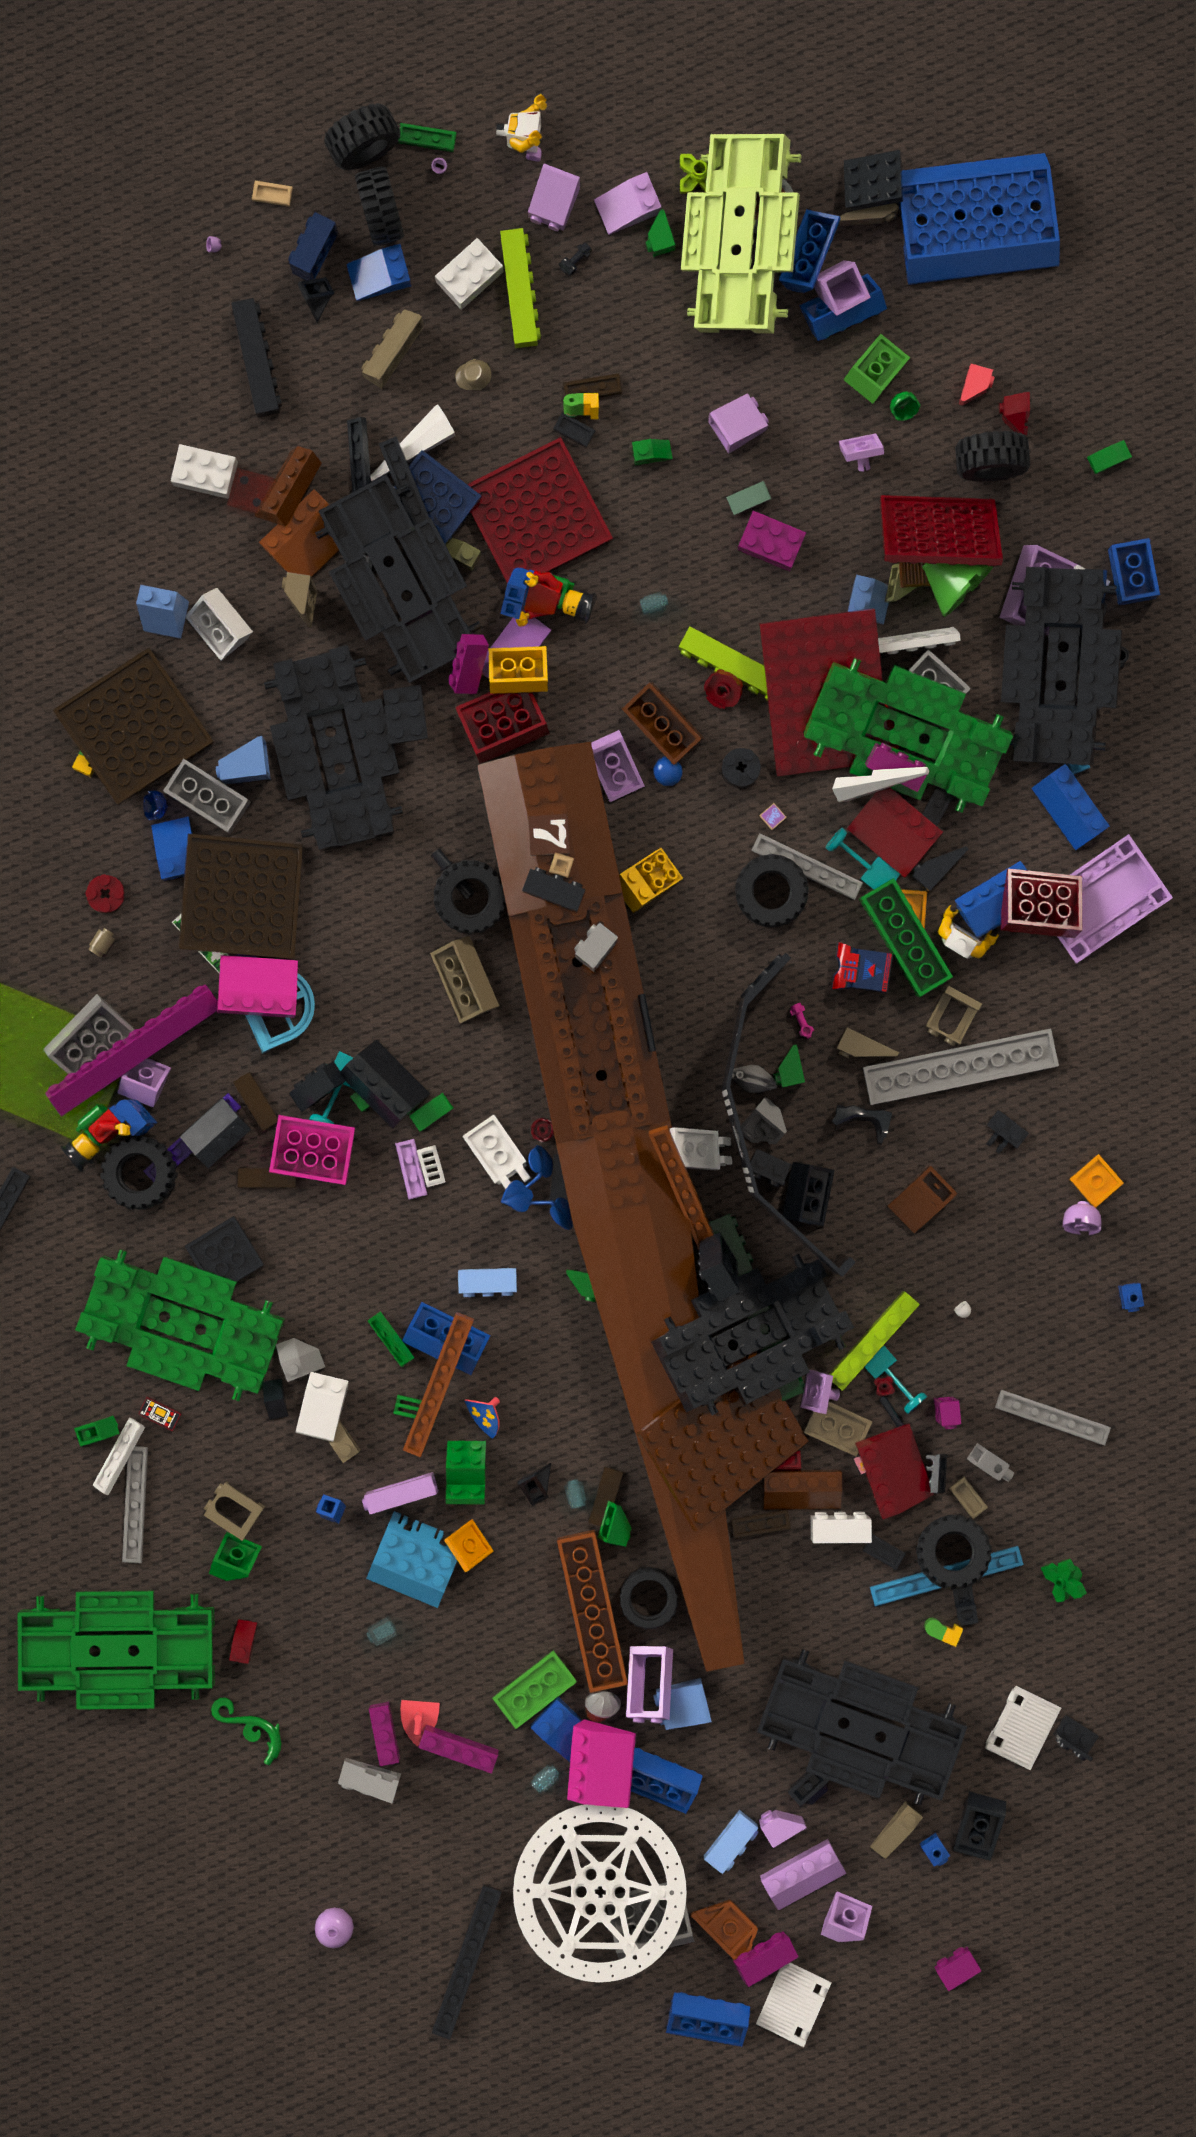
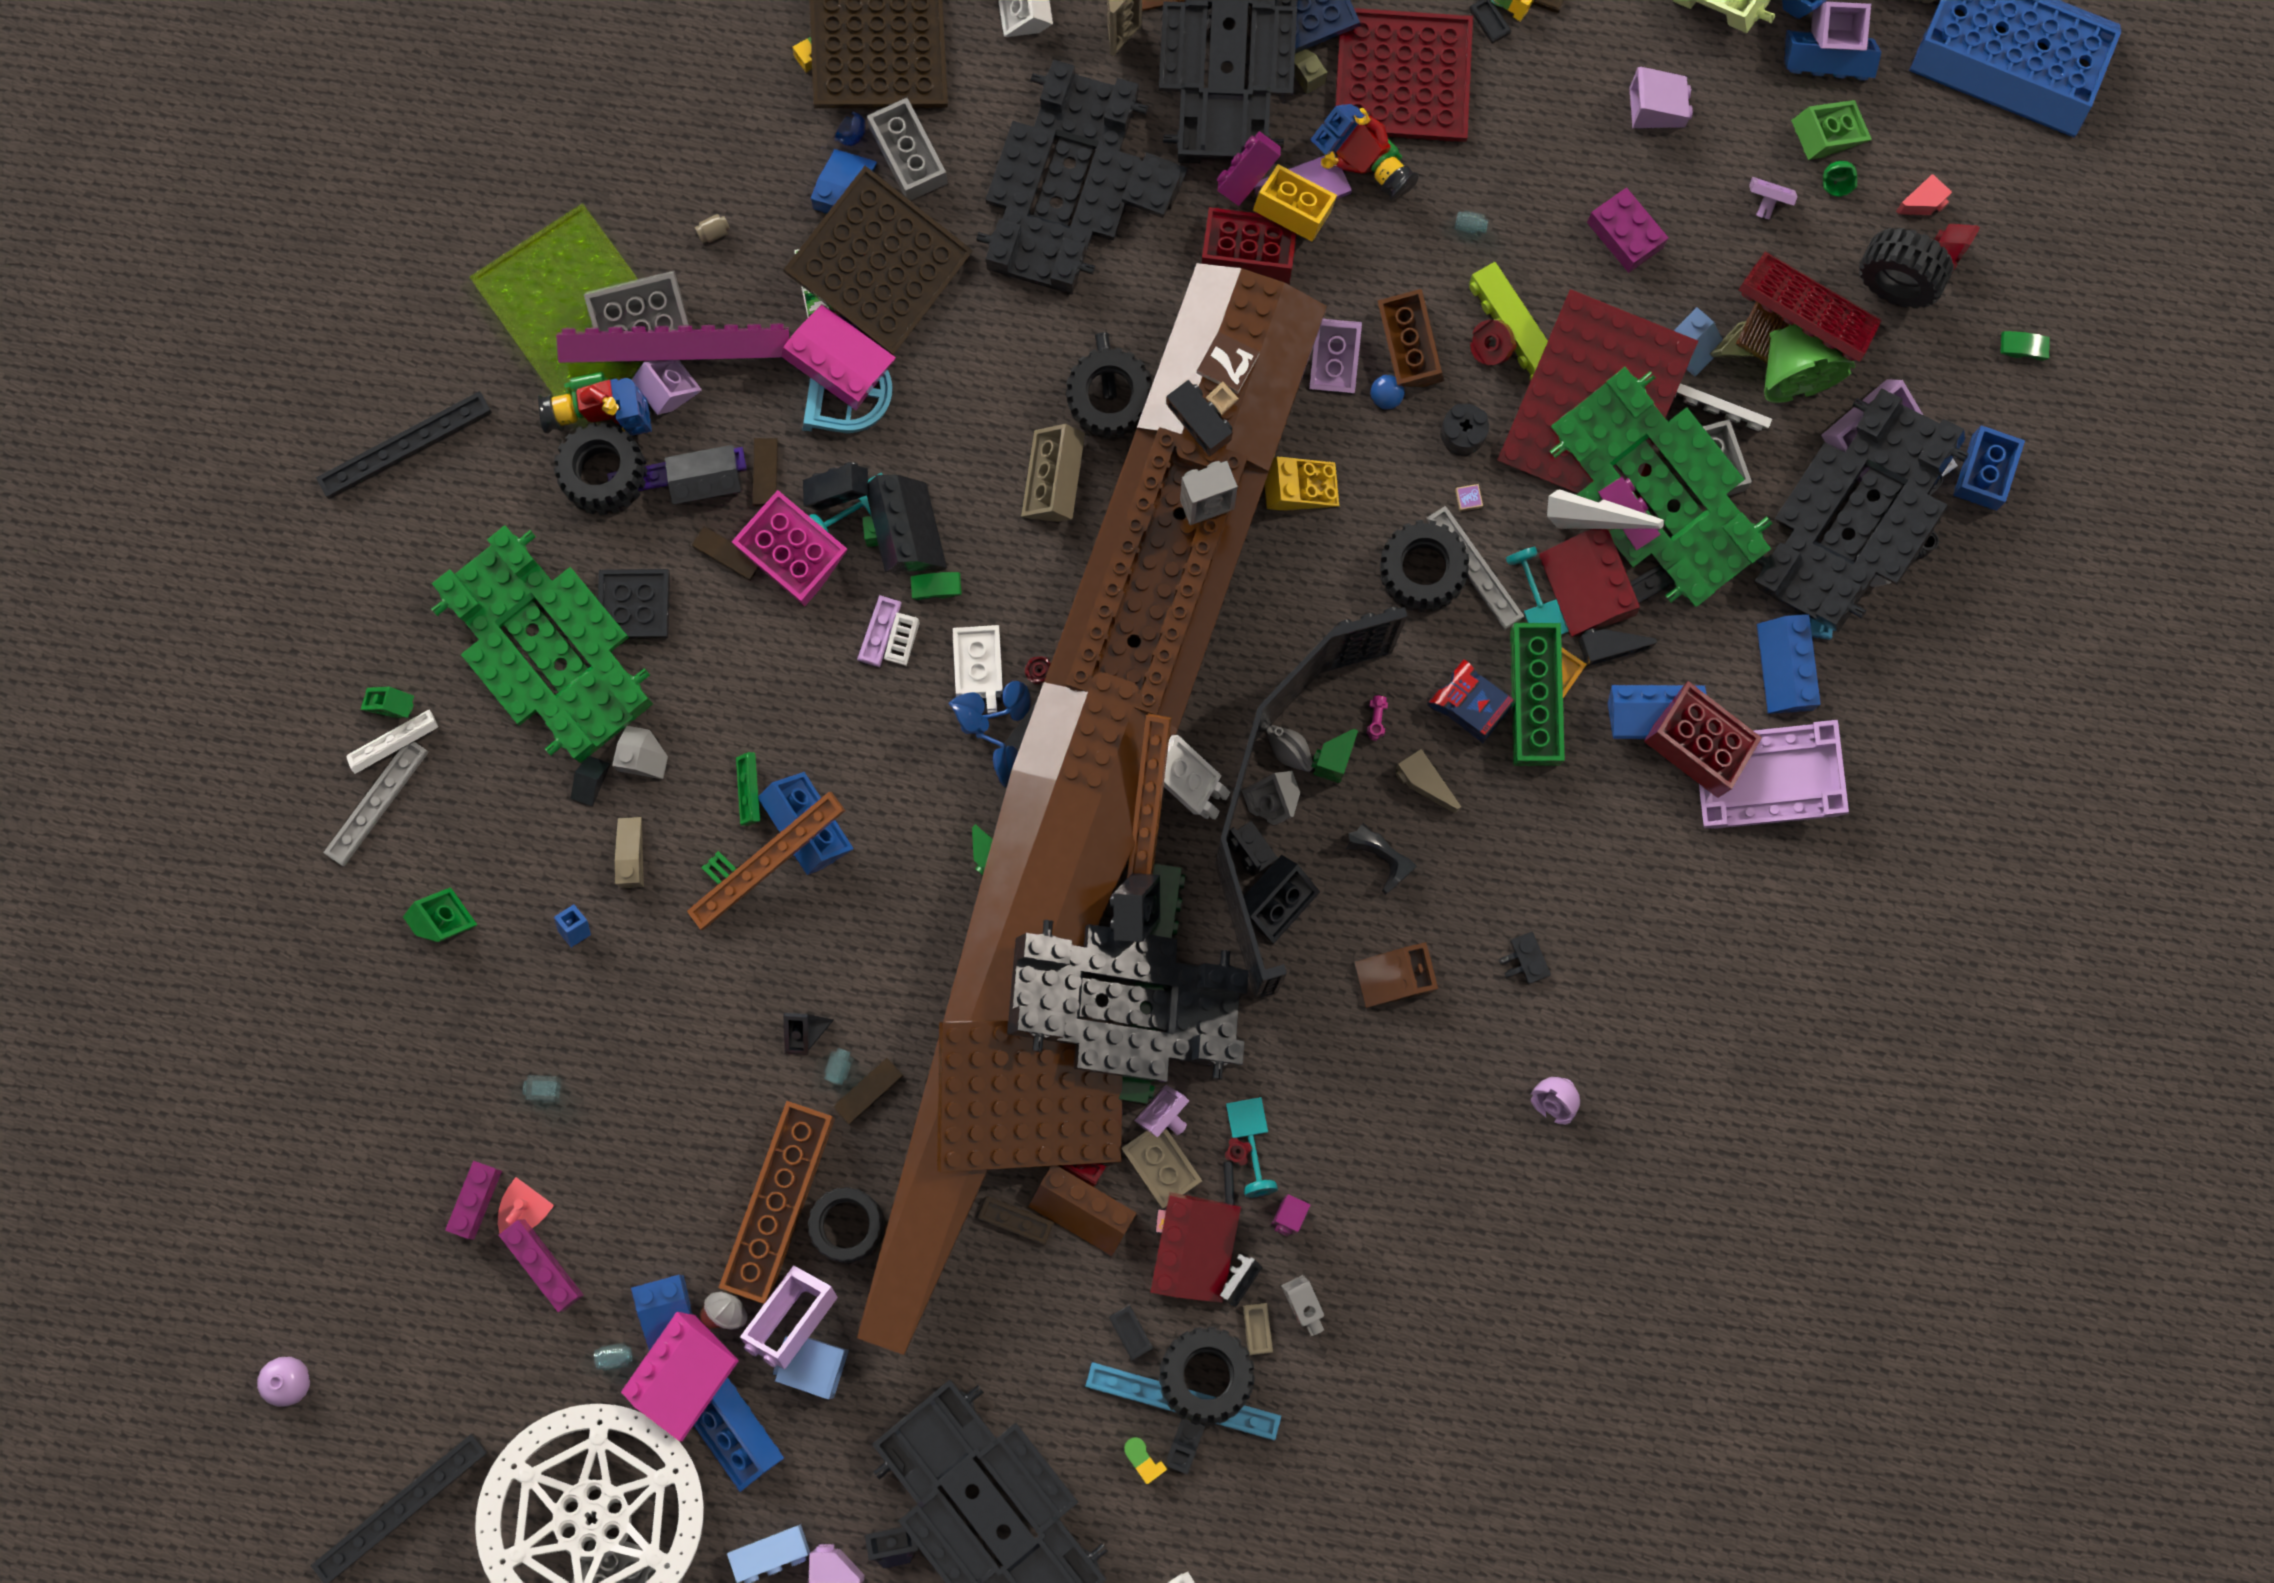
camera: 25 degrees right, 10 degrees down
(116, 893) = (747, 174): dark red plate -> none
(159, 1413) = (463, 724): tile -> none
(177, 1649) = (315, 974): green piece -> none
(228, 1491) = (495, 879): dark tan panel -> none
(243, 1641) = (391, 1011): dark red slope -> none
(245, 763) = (965, 138): medium blue slope -> none
(251, 1721) = (343, 1102): green plant -> none
(322, 1406) = (632, 812): white slope -> none
(369, 1780) = (425, 1240): light grey wedge -> none
(400, 1493) = (654, 952): lavender piece -> none
(413, 1561) = (624, 1034): dark azure slope -> none
(465, 1472) = (736, 972): green bracket -> none
(468, 1545) = (690, 1052): light orange tile -> none
(485, 1415) = (795, 926): blue shield -> none
(487, 1281) = (885, 789): light blue brick -> none
(534, 1689) = (663, 1251): bright green plate -> none
(615, 1526) = (858, 1126): green slope -> none
(646, 1022) = (1213, 615): black bar -> none
(651, 451) = (1555, 79): green slope -> none
(748, 497) = (1630, 176): sand green slope -> none
(841, 1528) = (1099, 1273): white brick -> none
(873, 1340) = (1255, 1093): lime brick -> none
(957, 1036) = (1554, 783): dark tan panel -> none
(960, 1066) = (1518, 862): light grey plate -> none
(961, 940) = (1596, 733): torso -> none
(963, 1309) = (1371, 1120): white hinge -> none
(1052, 1417) = (1401, 1297): light grey tile -> none
(1066, 1580) = (1312, 1484): green plant -> none
(1096, 1181) = (1595, 1069): light orange tile -> none
(1131, 1296) = (1563, 1215): blue brick -> none

